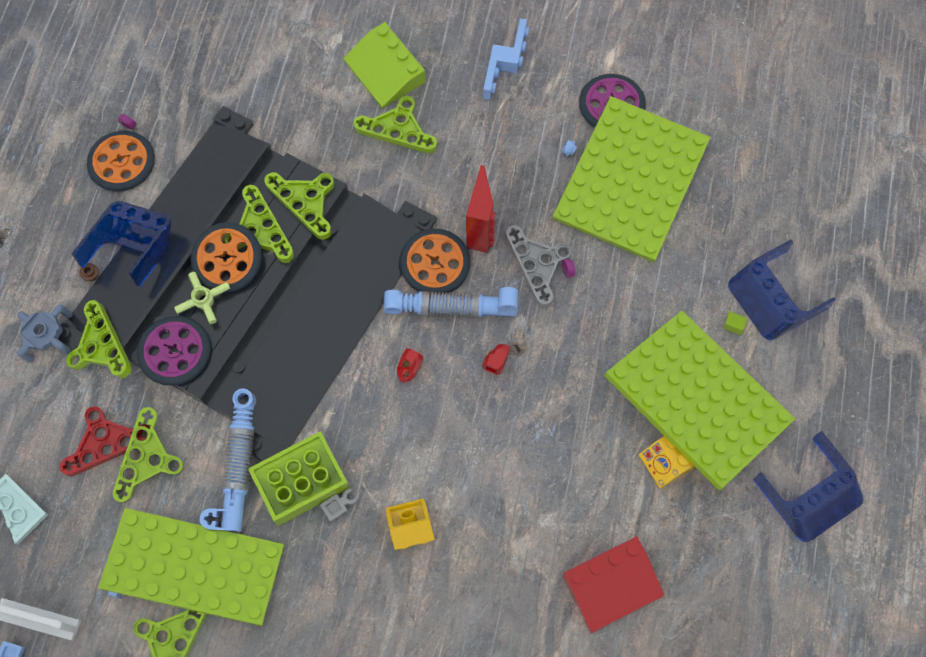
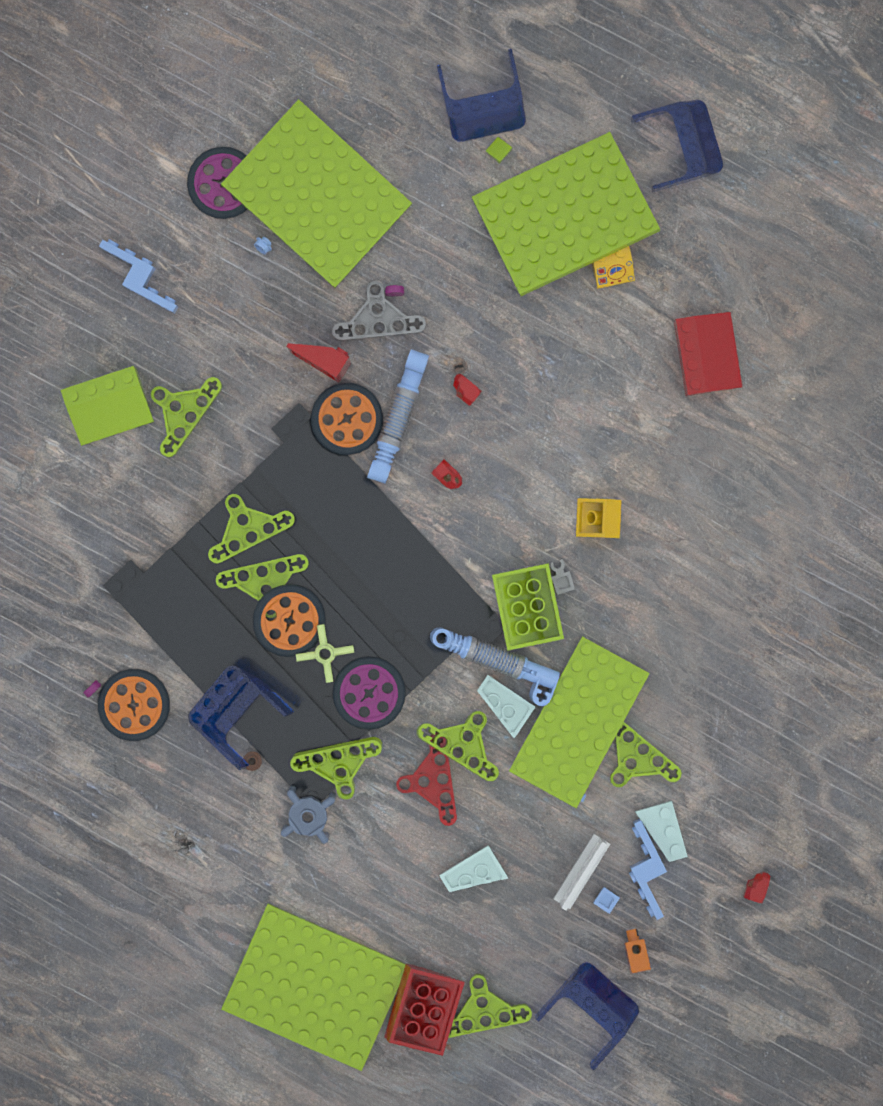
camera: 75 degrees left, 20 degrees up
(195, 490) = (506, 704): none -> light aqua wing

